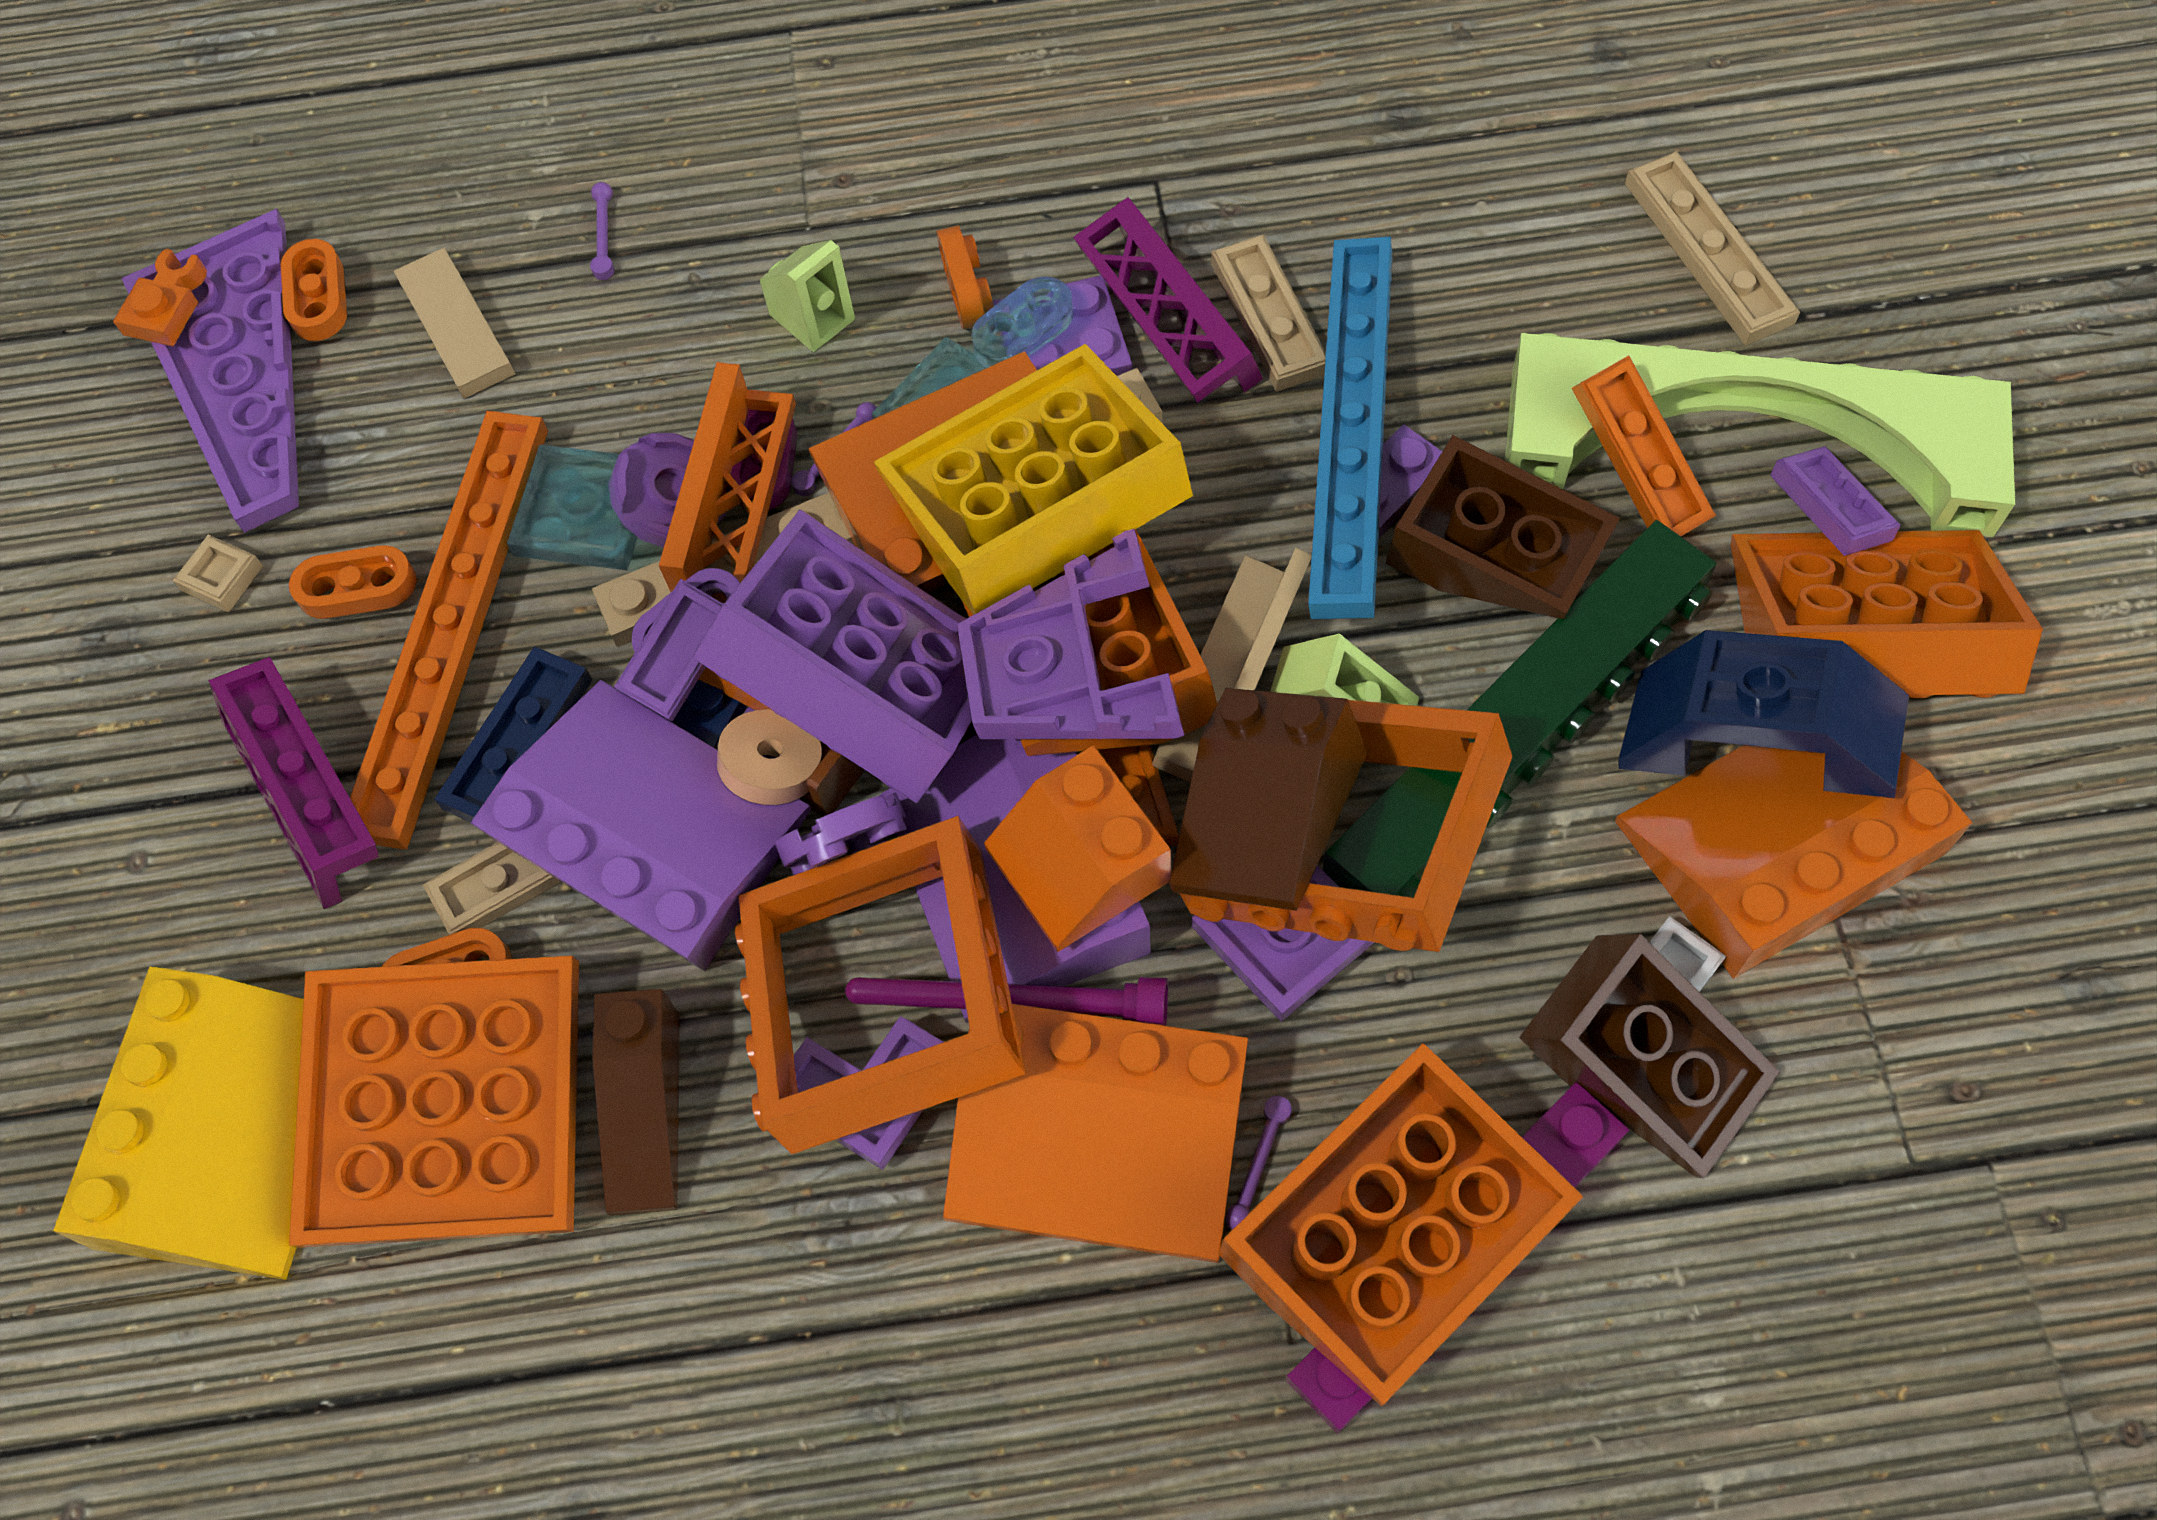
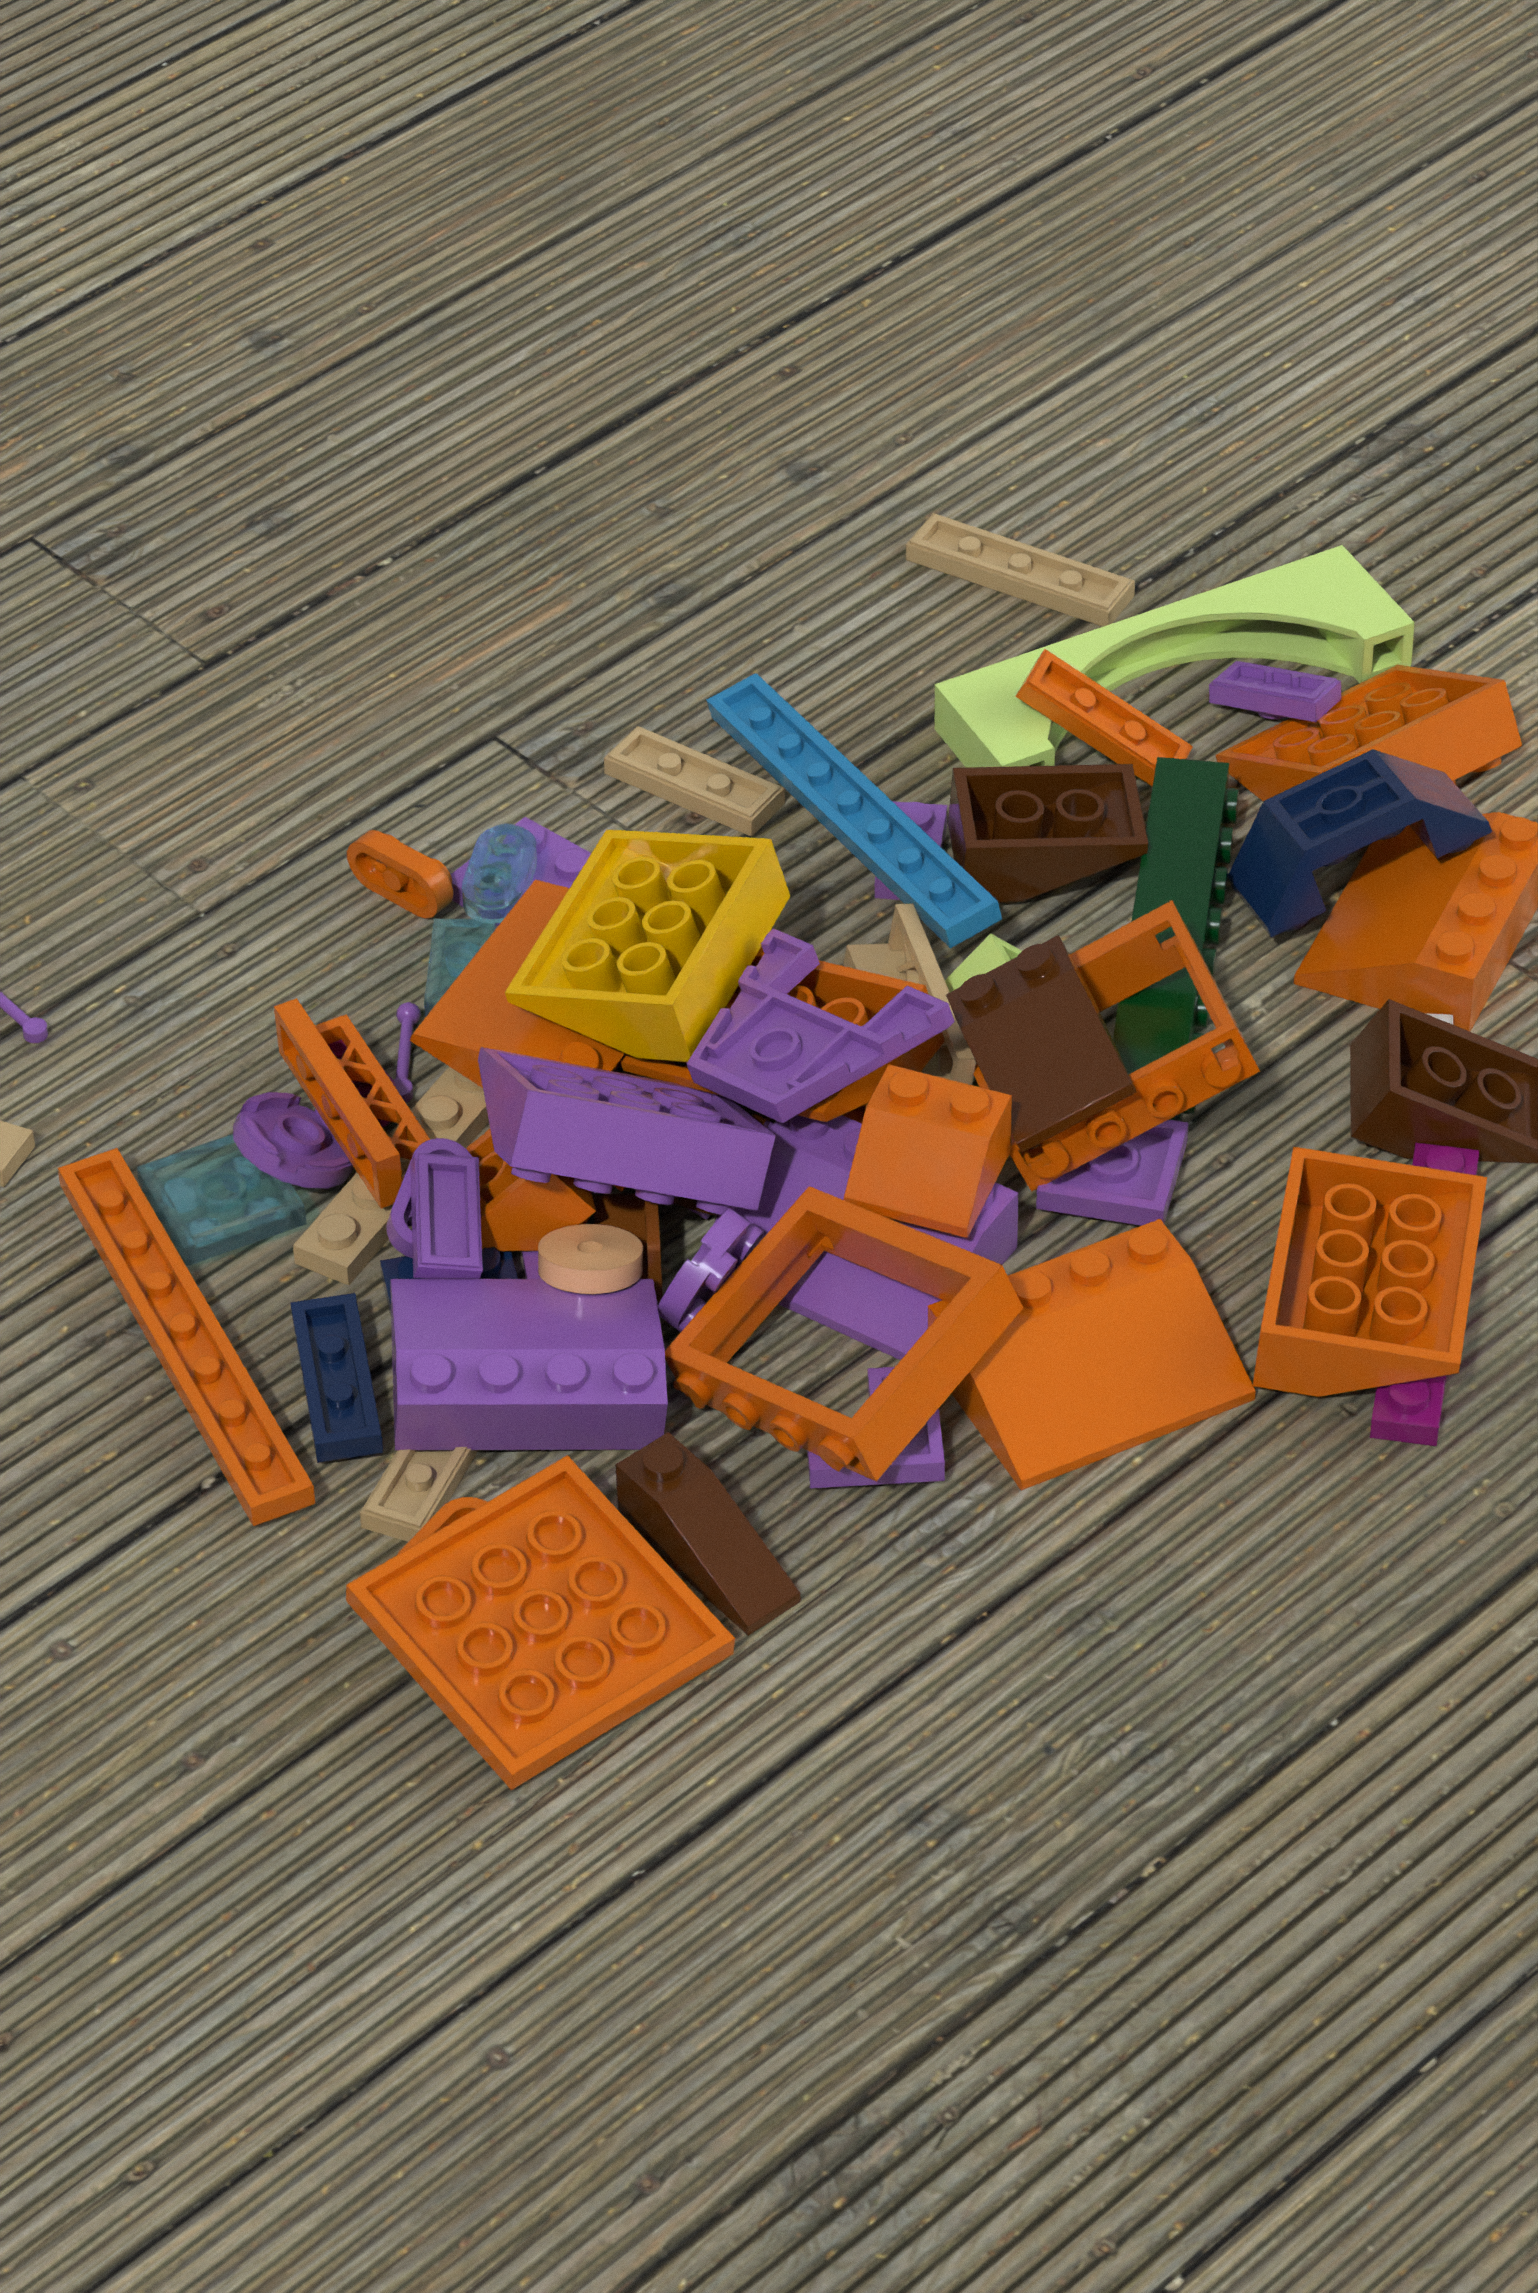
camera: 40 degrees left, 20 degrees down
(195, 1130) = (350, 1753): yellow slope -> none
(293, 776) = (163, 1484): magenta fence -> none
(355, 580) = (59, 1351): orange plate -> none
(810, 294) = (276, 940): yellowish green slope -> none
(1136, 1002) = (1051, 1243): magenta piece -> none
(1182, 293) = (597, 791): magenta fence -> none
(1277, 1113) = (1215, 1286): medium lavender hinge -> none

